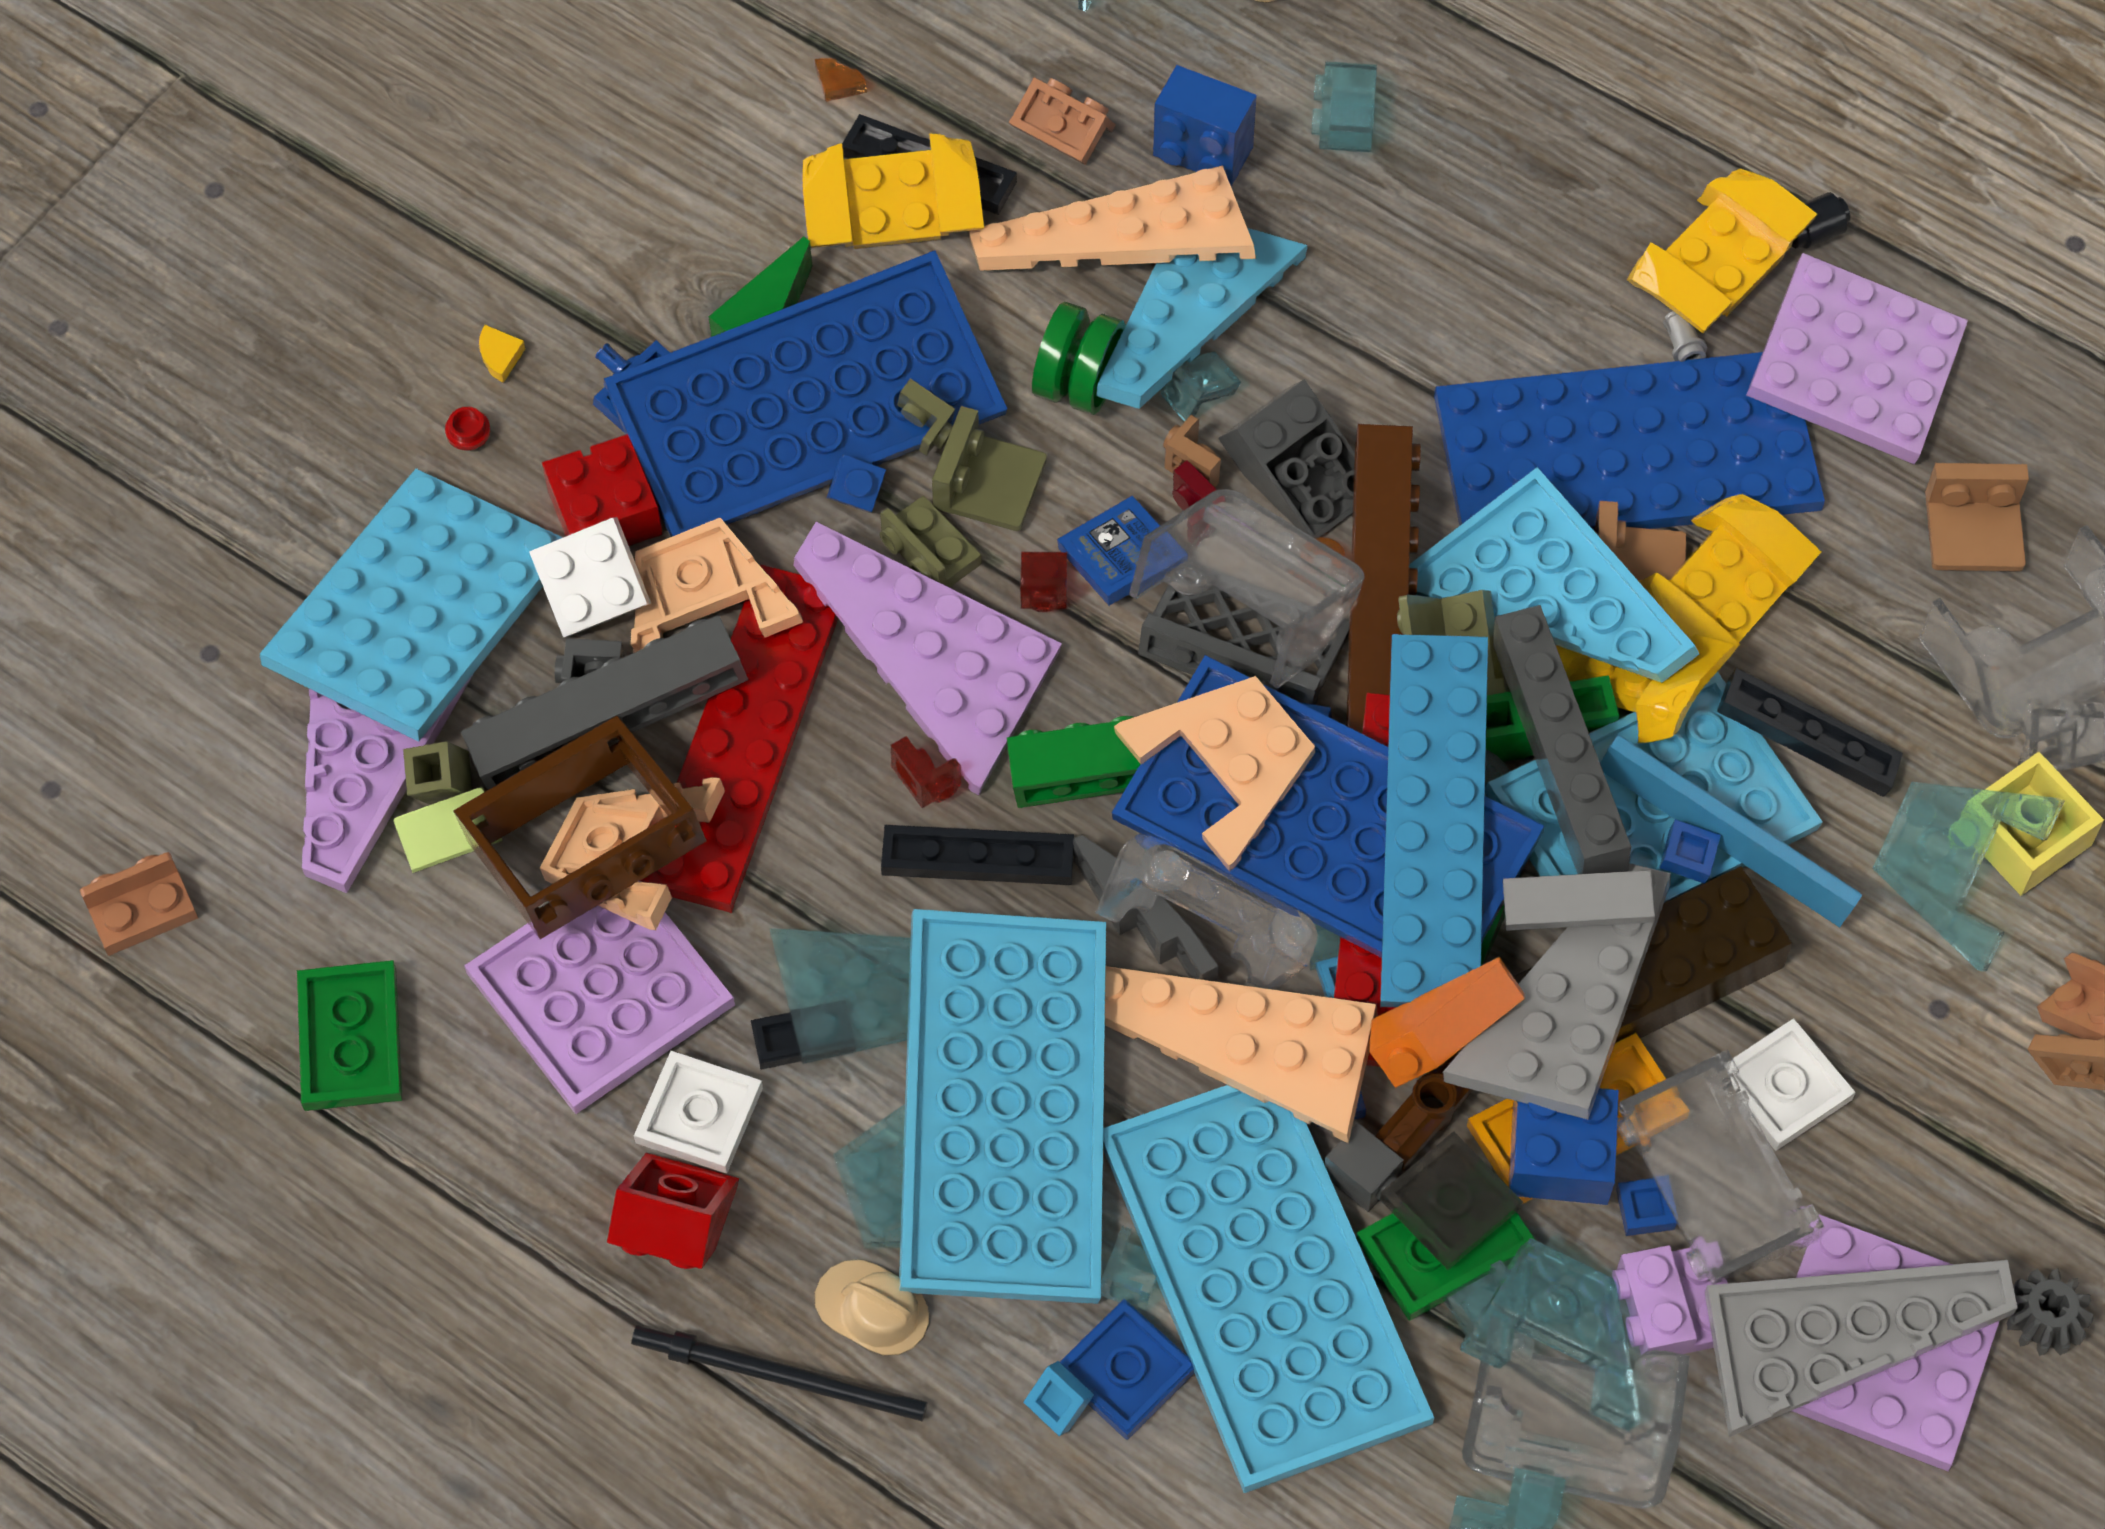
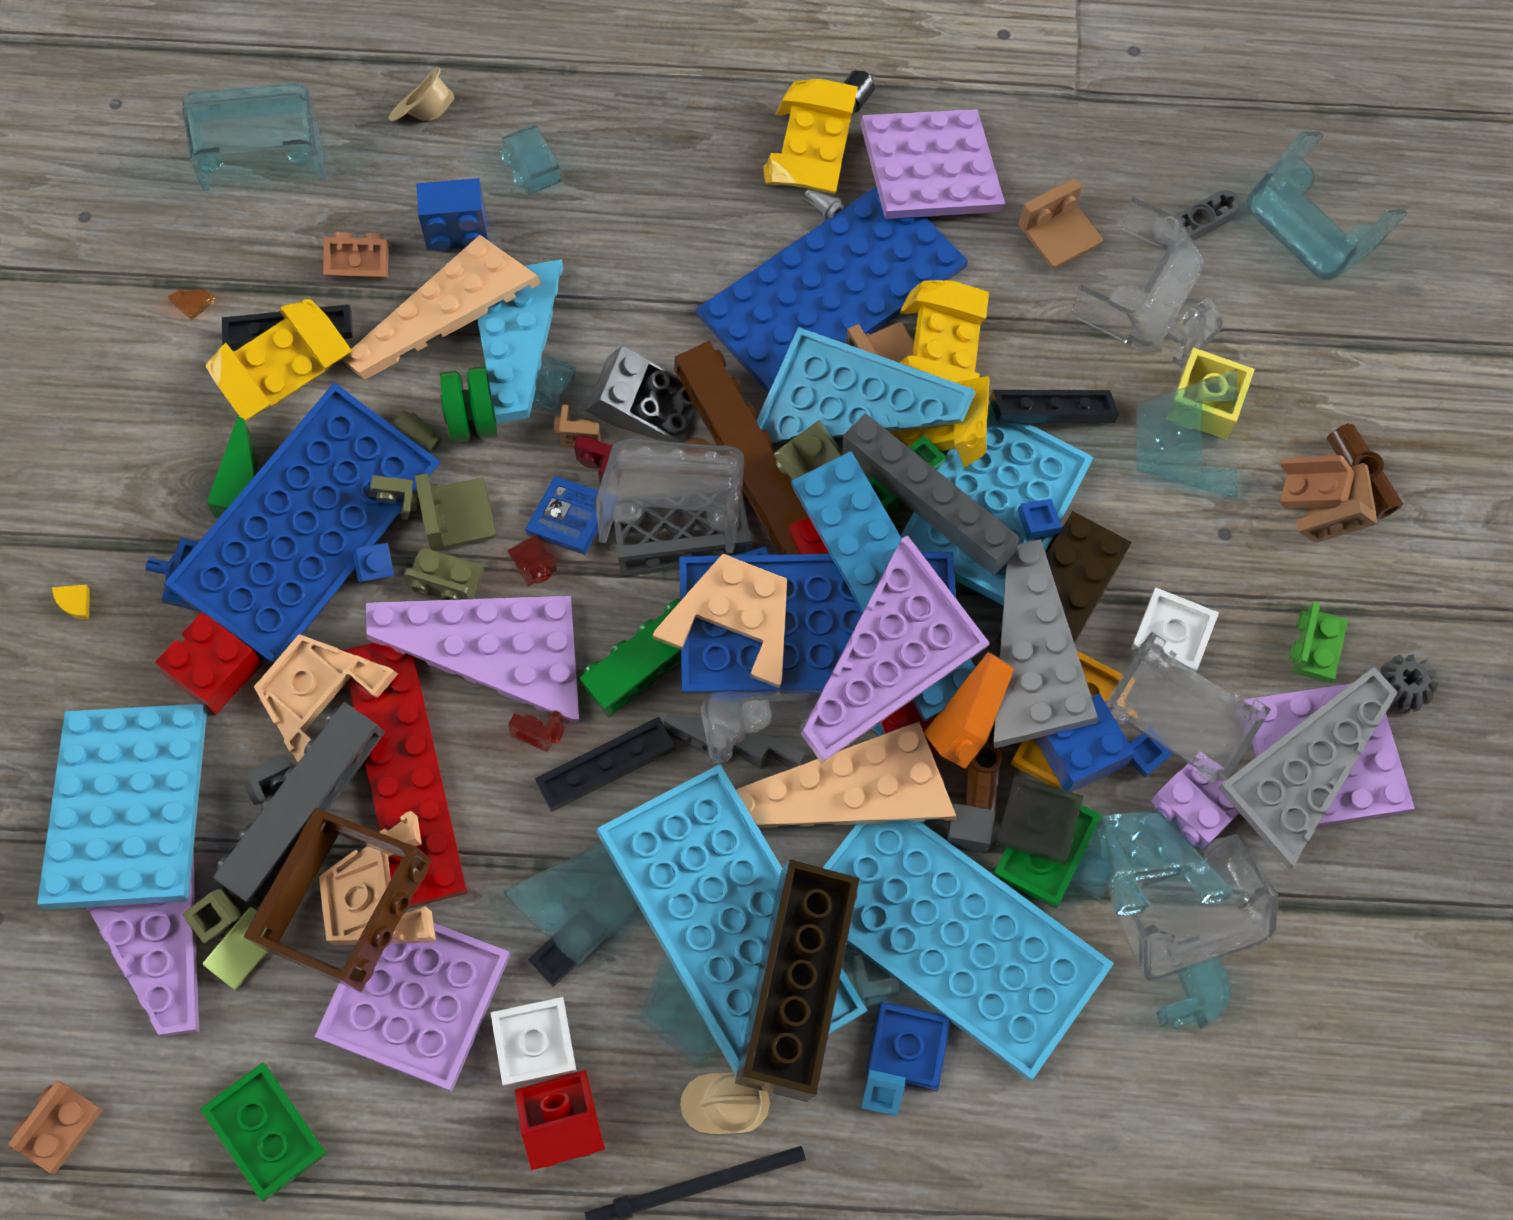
camera: 35 degrees left, 5 degrees up
(467, 428) = (84, 664): red plate -> none
(590, 577) = (235, 722): white plate -> none
(1002, 360) = (417, 431): none -> olive cone
(1032, 1205) = (798, 981): none -> dark brown brick
(1400, 892) = (898, 650): none -> lavender wing
(1578, 900) = (1006, 585): light grey tile -> none
(1738, 834) = (1062, 492): dark azure tile -> none
(1965, 1203) = (1319, 644): none -> bright green bracket

